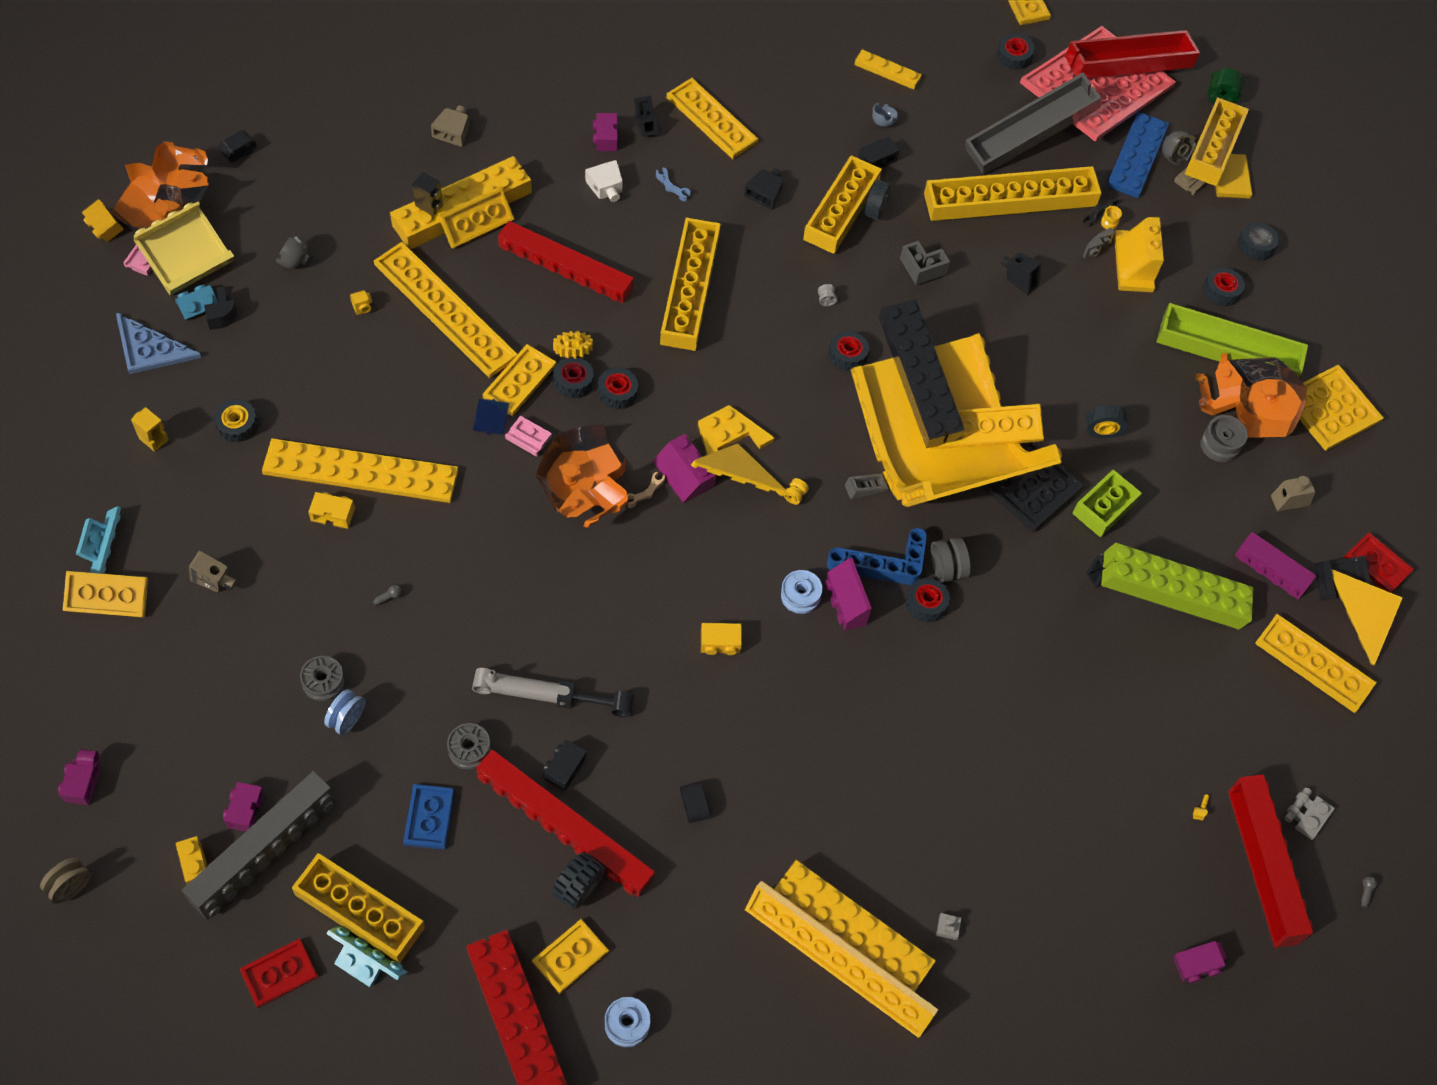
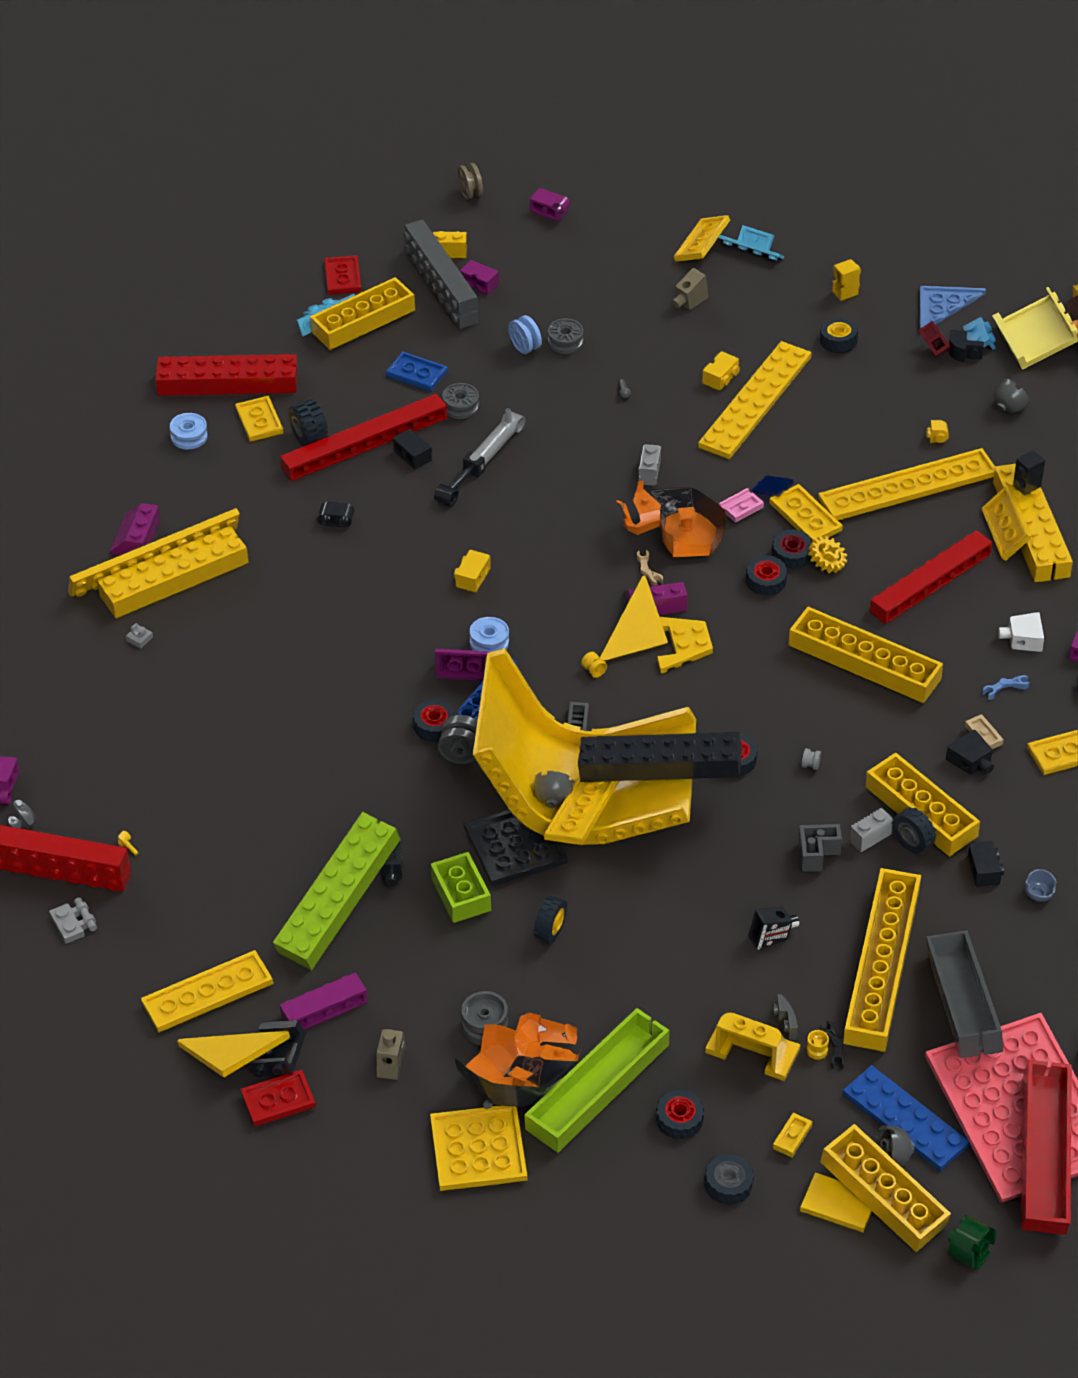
camera: 120 degrees right, 15 degrees down
(228, 328) = (934, 339): none -> dark red brick
(504, 529) = (650, 464): none -> light grey brick
(735, 186) = (985, 729): none -> tan plate
(808, 1003) = (136, 529): none -> magenta slope
(885, 234) = (871, 830): none -> light grey brick
(980, 456) = (552, 788): none -> dark grey cylinder
(1196, 214) = (792, 1135): none -> yellow plate
(1236, 912) = (26, 815): none -> dark grey helmet

